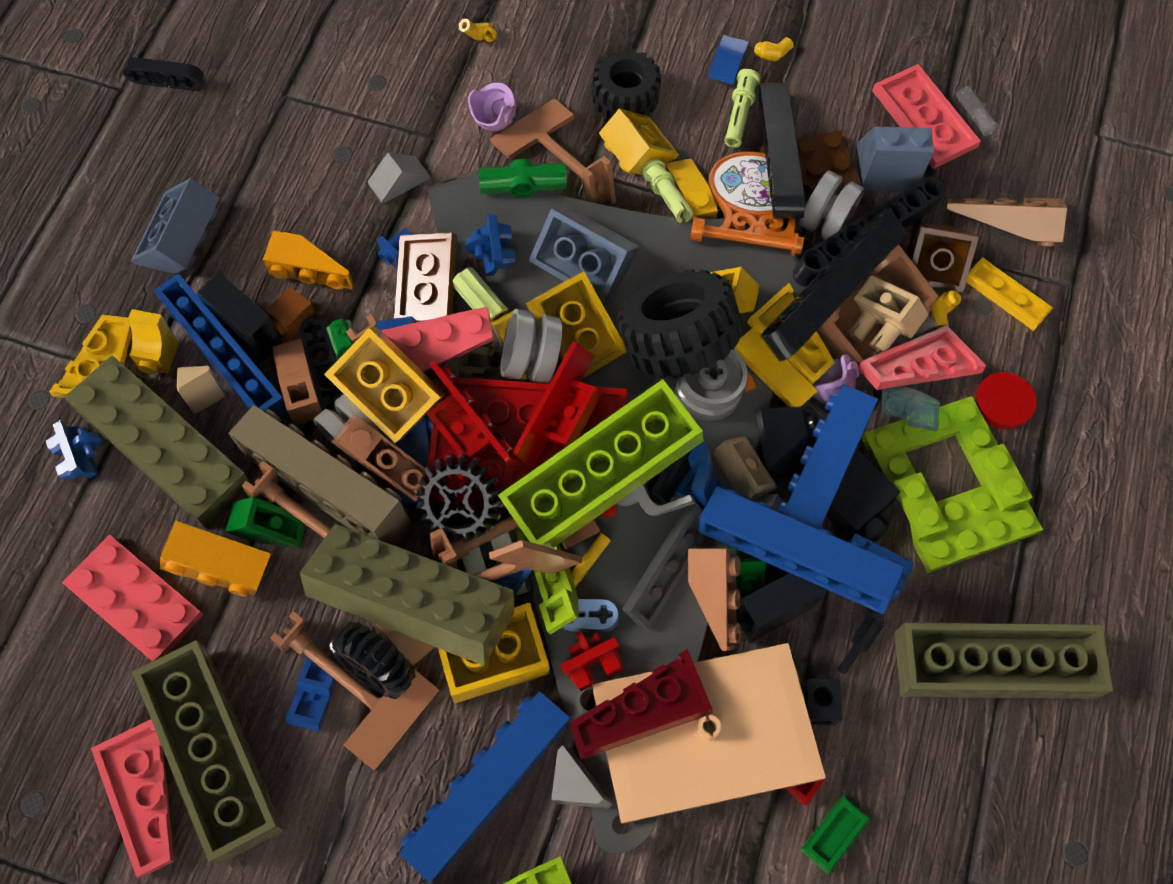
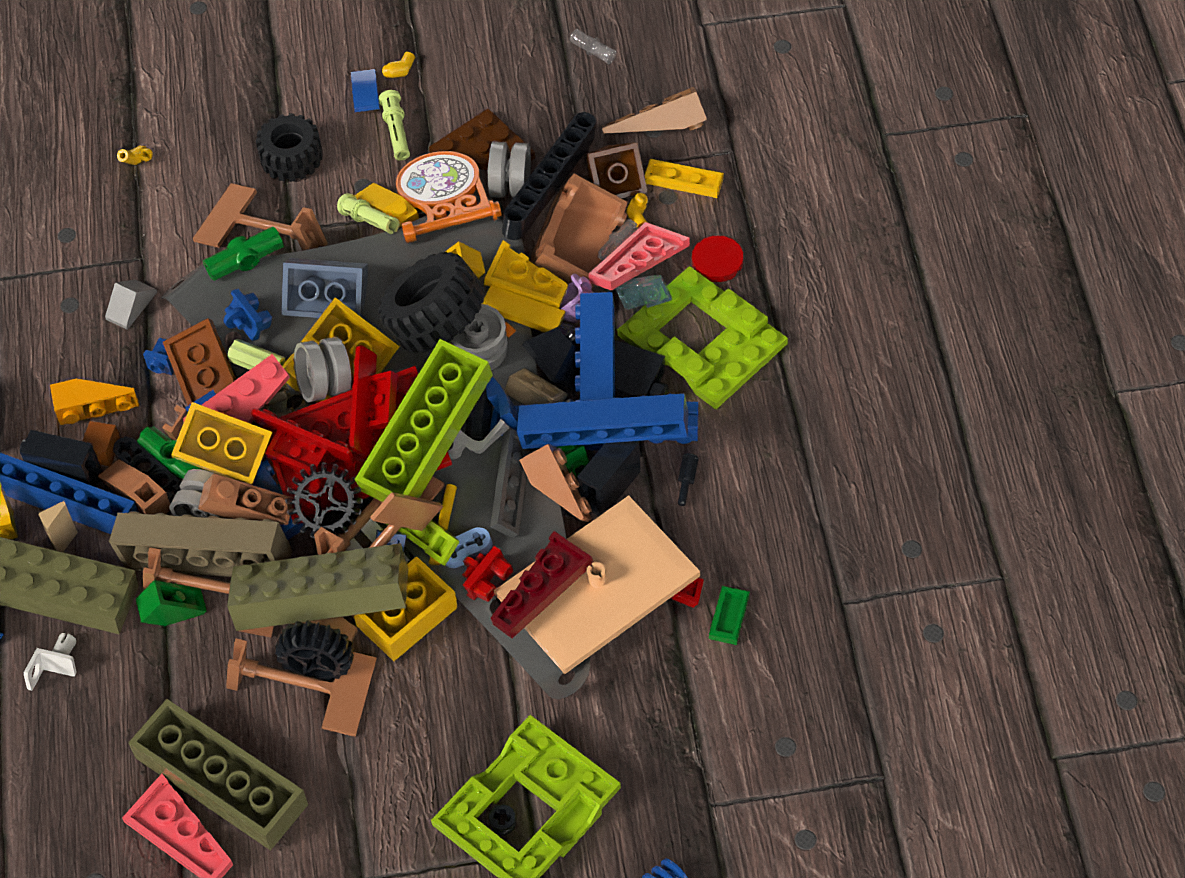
camera: 20 degrees left, 10 degrees down
(125, 529) = (55, 661): none -> white bracket
(132, 599) = (89, 707): coral plate -> none
(213, 559) = (142, 646): light orange wedge -> none
(312, 697) = (277, 706): blue slope -> none
(484, 788) = (448, 702): blue brick -> none
(493, 106) = (183, 210): lavender cap -> none
(575, 784) = (518, 667): light grey slope -> none
(636, 141) = (320, 188): yellow slope -> none
(781, 151) = (446, 143): black beam -> none
(820, 715) = (676, 517): black brick -> none
(833, 285) = (539, 224): black beam -> none
(890, 306) = (591, 225): tan brick -> none
(894, 157) = (541, 111): sand blue slope -> none
(918, 103) = (552, 67): coral plate -> none
(1002, 660) = (795, 440): olive brick -> none

